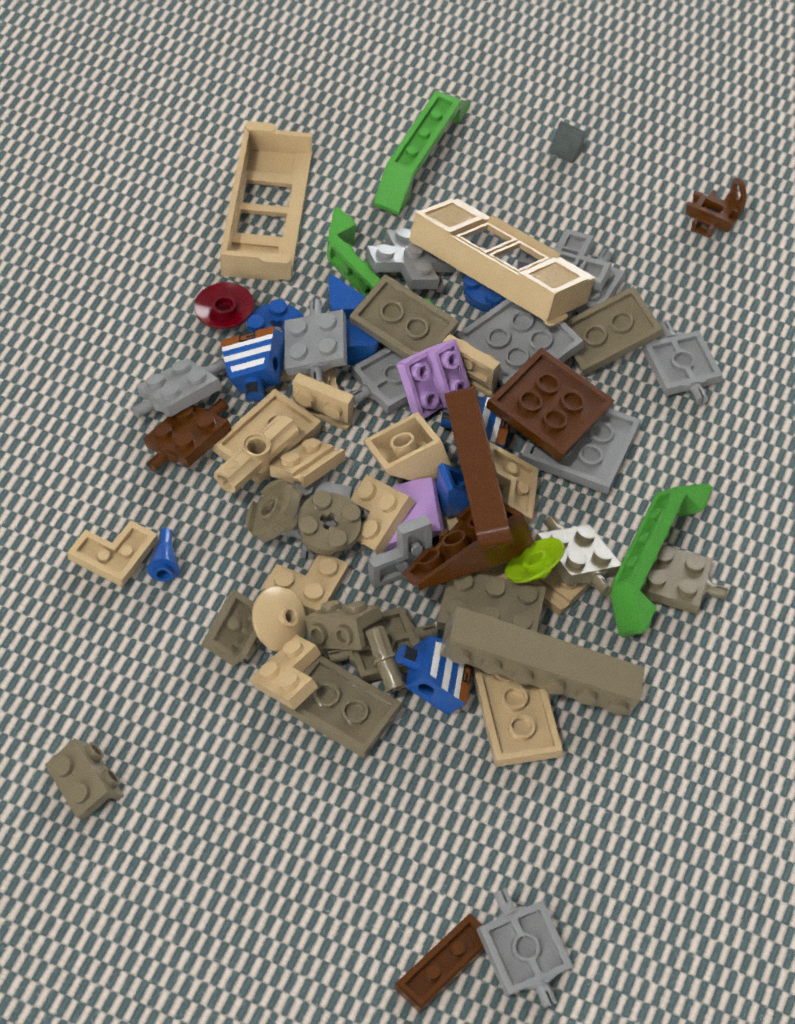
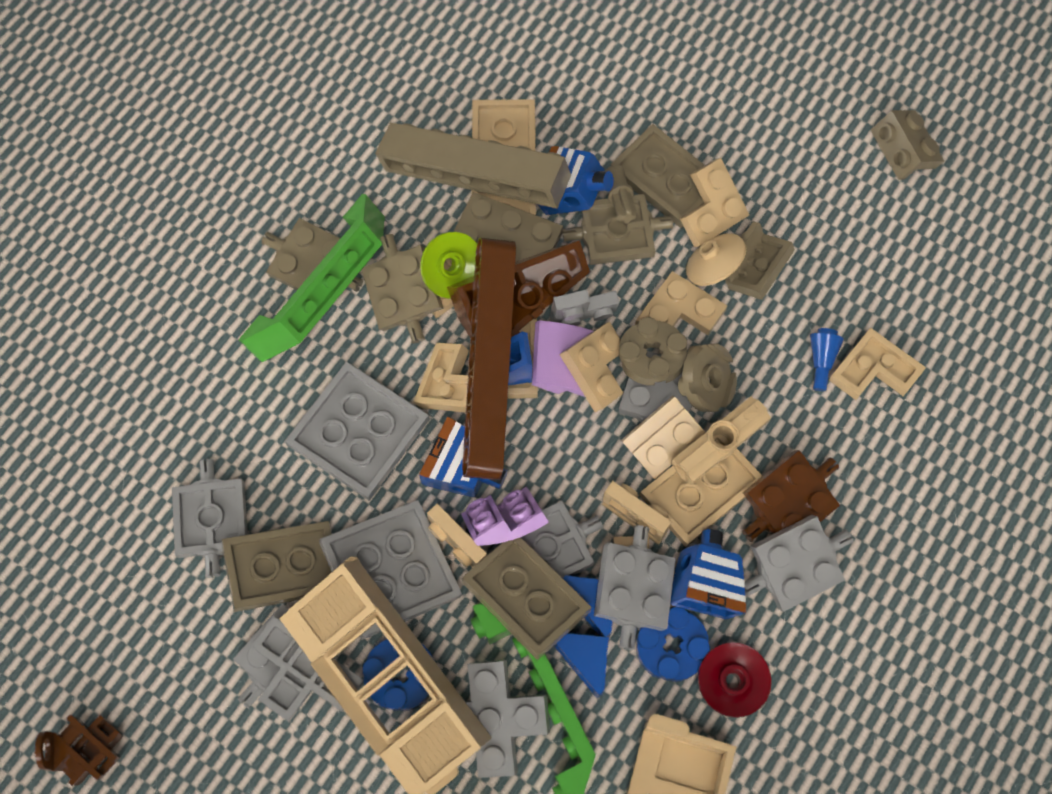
camera: 165 degrees left, 15 degrees up
(341, 625) = (654, 242): dark tan bracket -> none
(408, 449) = (555, 423): tan slope -> none
(550, 404) = (383, 455): reddish brown plate -> none

